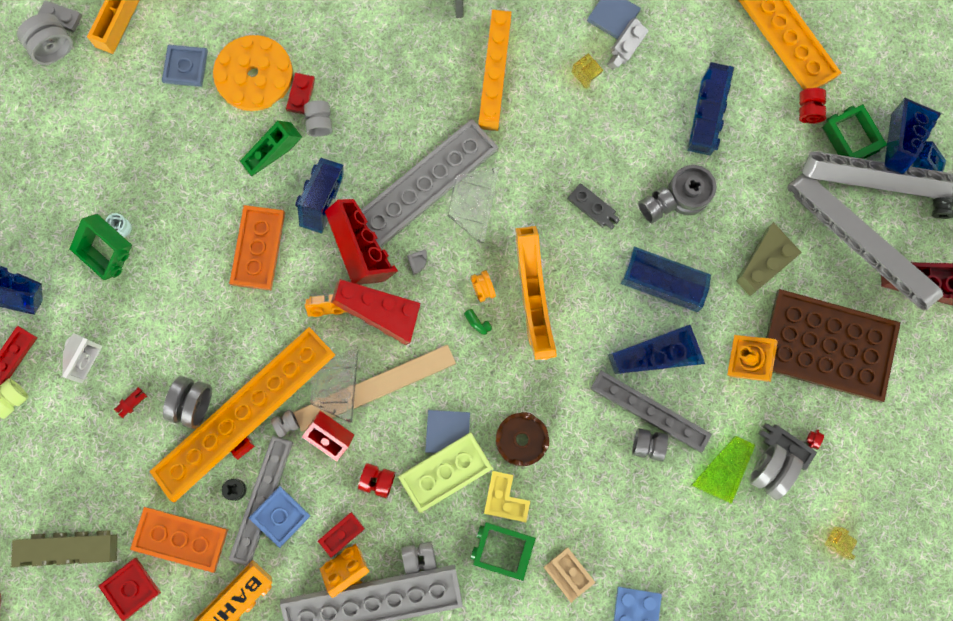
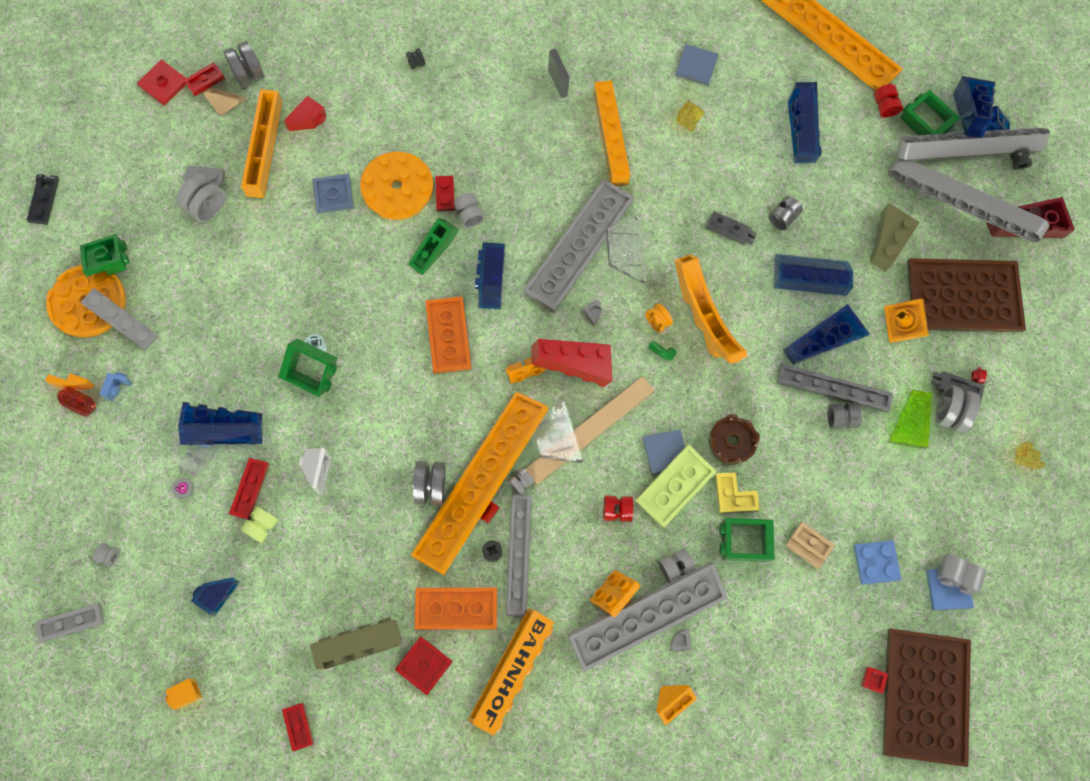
camera: 20 degrees left, 5 degrees down
(130, 402) = (374, 499): red pin -> none
(279, 516) = (540, 563): medium blue tile -> none
(328, 436) = (564, 480): red brick -> none
(341, 534) = (600, 564): red plate -> none
(358, 244) = (539, 307): red wedge -> none
(627, 43) = (716, 85): hinge -> none
(692, 189) = (812, 191): flat silver wheel -> none

